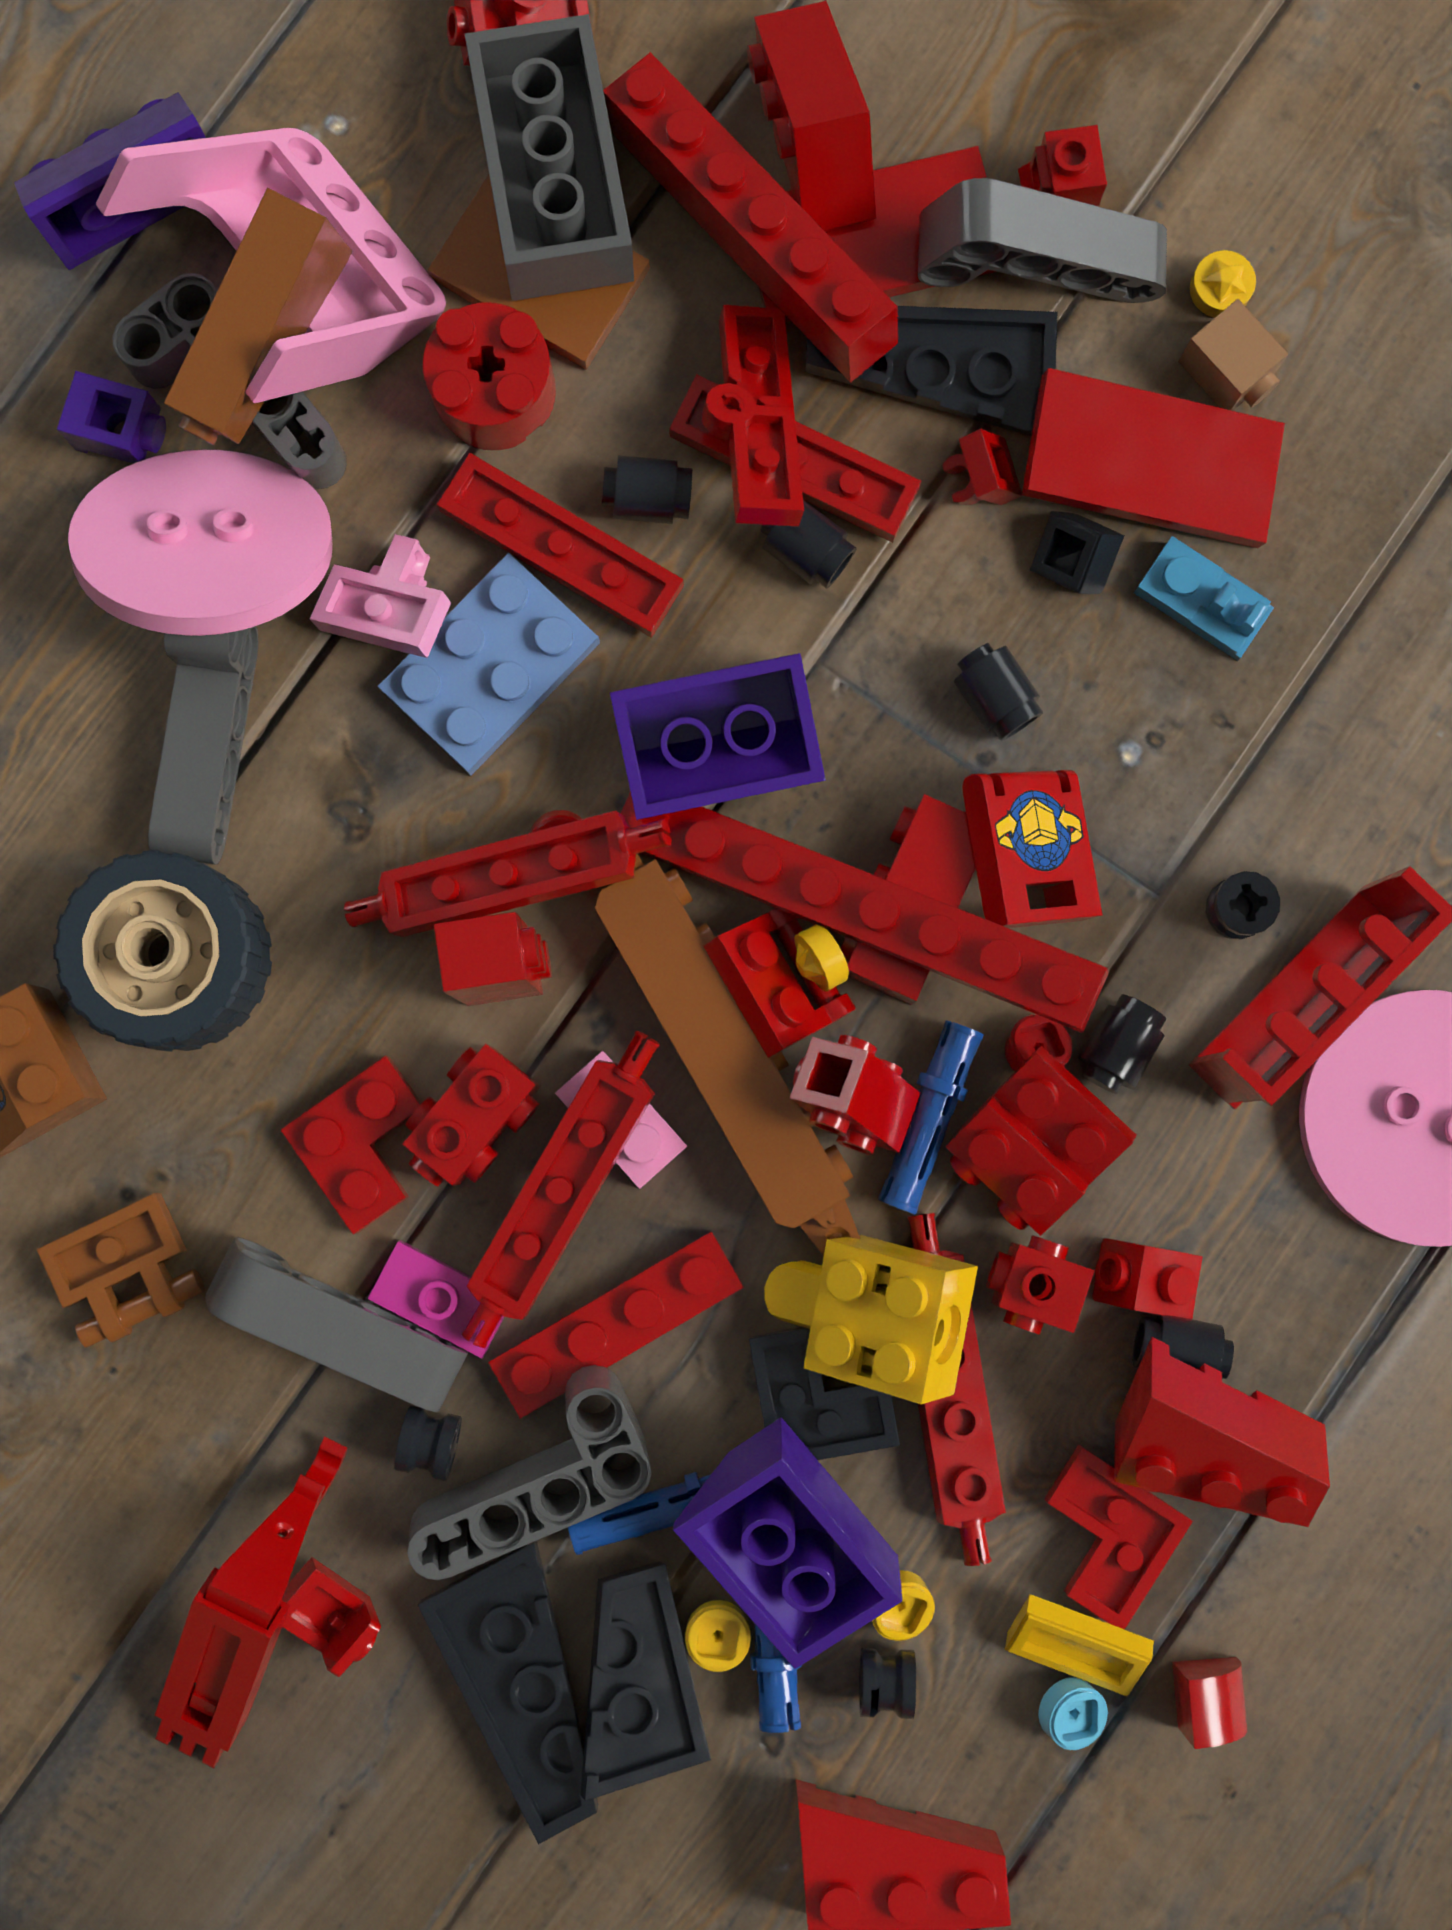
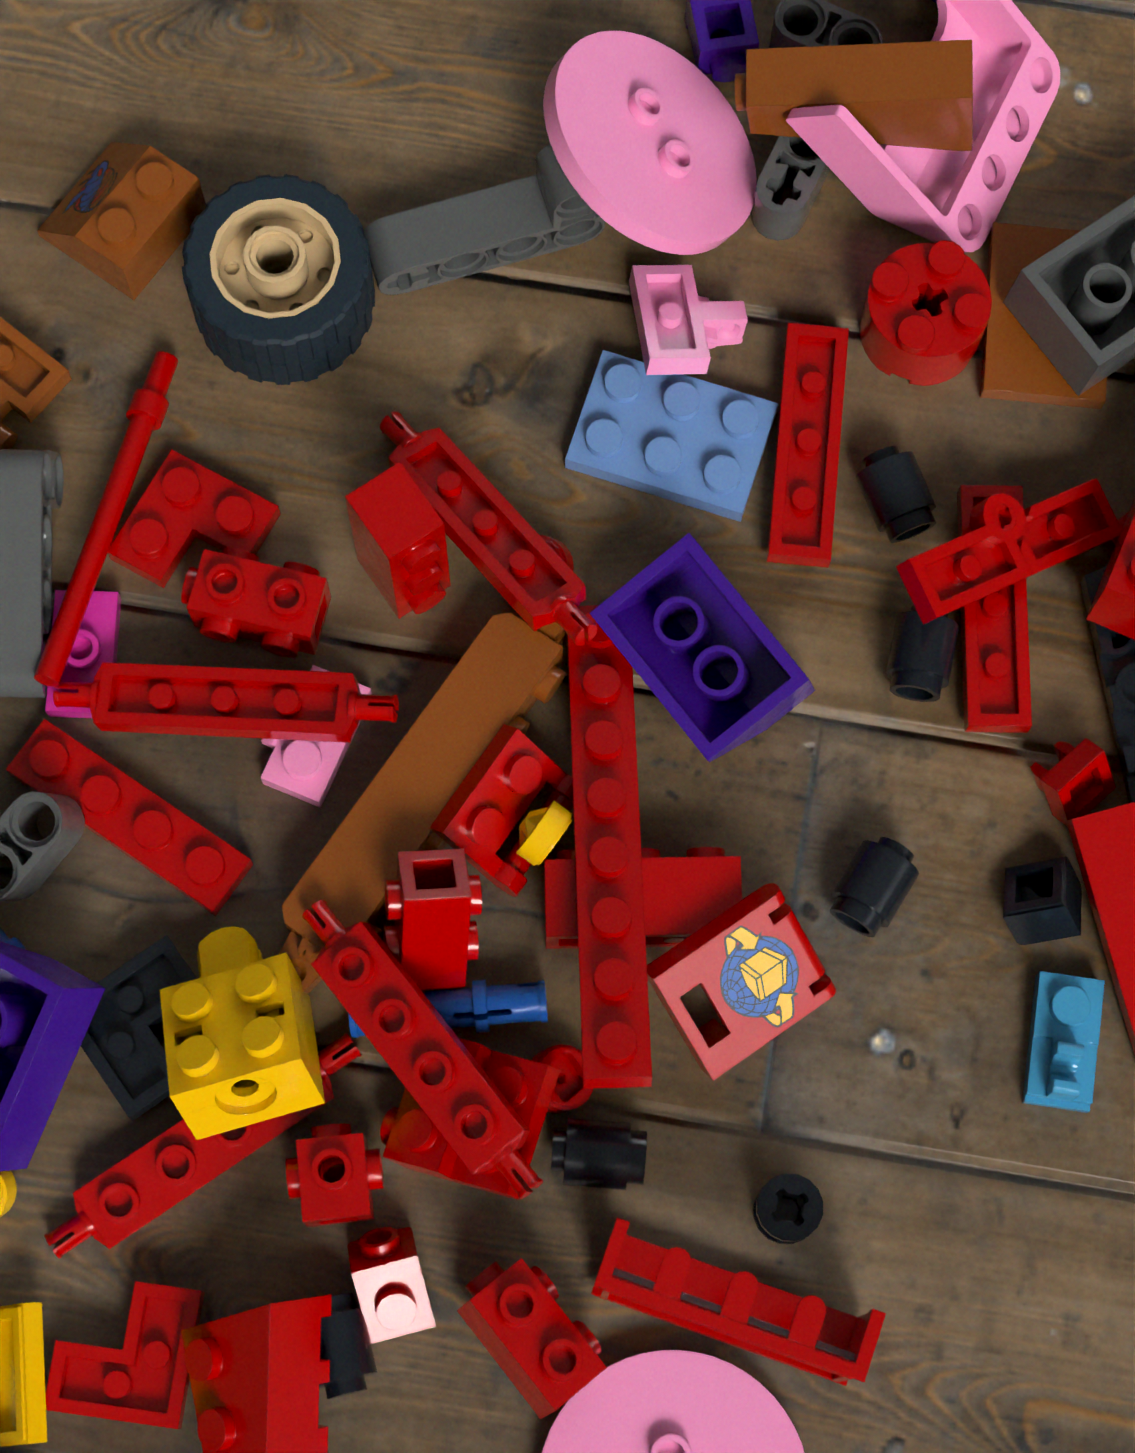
camera: 60 degrees right, 10 degrees down
(232, 1138) = (145, 414): none -> red bar
(972, 1159) = (421, 1049): none -> red plate
(1255, 1178) = (531, 1335): none -> red brick

